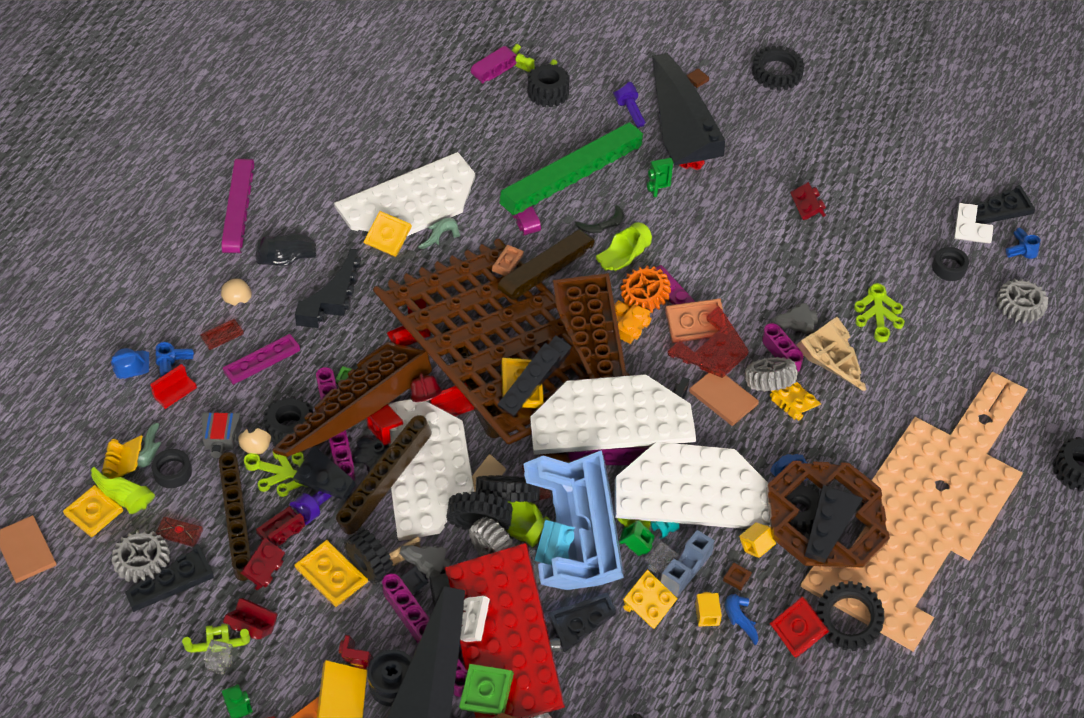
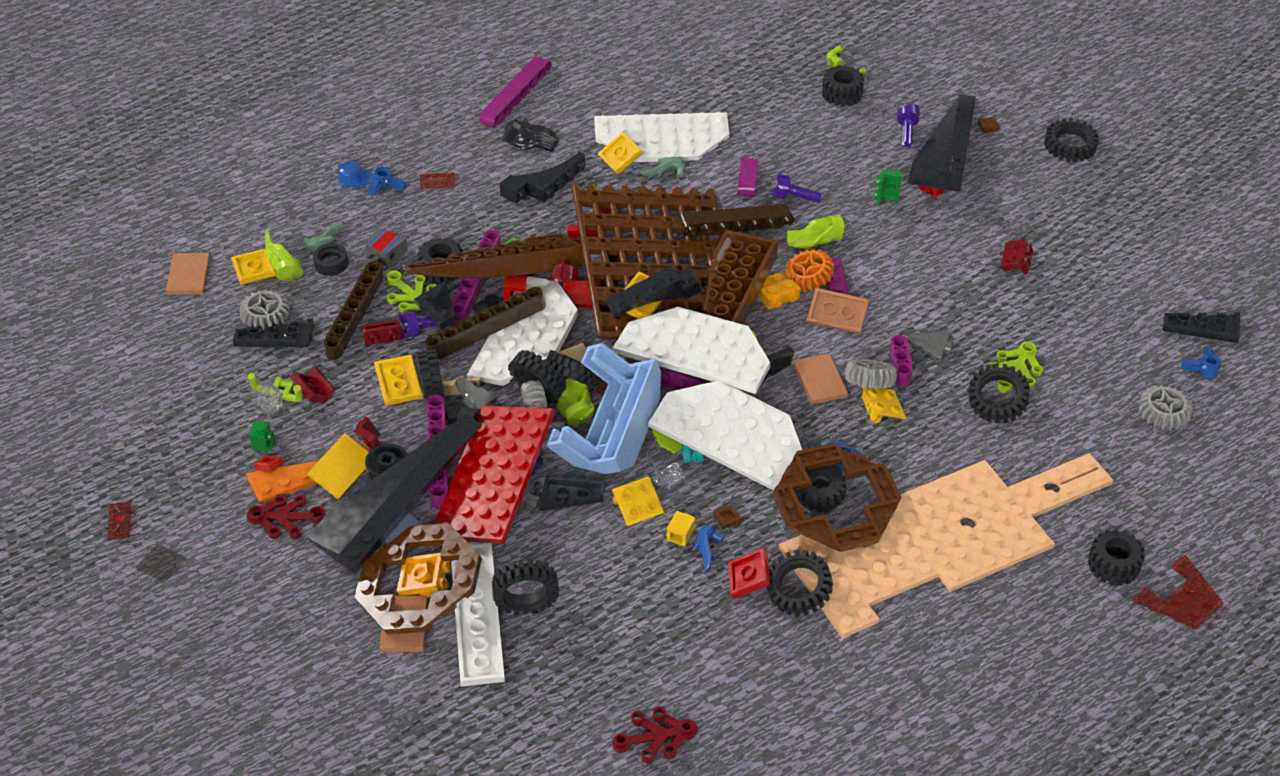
camera: 30 degrees right, 5 degrees down
(121, 458) = (296, 236): yellow hinge -> none
(172, 386) = (371, 202): red panel -> none
(179, 531) = (306, 305): clear red tile -> none
(235, 291) = (469, 153): tan hair -> none
(254, 442) = (399, 259): tan hair -> none
(261, 359) = (454, 208): magenta plate -> none
(262, 564) = (348, 349): dark red bracket -> none
(474, 618) = (479, 443): white plate -> none
(486, 690) = (450, 503): bright green plate -> none
(494, 64) = (807, 55): magenta beam -> none
(507, 260) = (703, 203): nougat plate -> none
(554, 542) = (585, 420): medium azure brick -> none
(565, 211) = (785, 187): none -> dark purple piece
(570, 169) = (813, 154): green brick -> none
(614, 221) = (815, 211): pearl dark grey piece -> none
(637, 538) = (659, 452): green brick -> none
(681, 572) = (700, 484): sand blue arch -> none
(719, 353) = (839, 341): clear red wing -> none
(757, 539) = (761, 494): yellow brick -> none
(830, 520) = (831, 500): black wing -> none
(832, 351) = (944, 378): tan wedge -> none
(893, 326) = (999, 413): none -> black tyre
(947, 273) = (1114, 362): black tyre -> none
(966, 227) = (1157, 331): white plate -> none

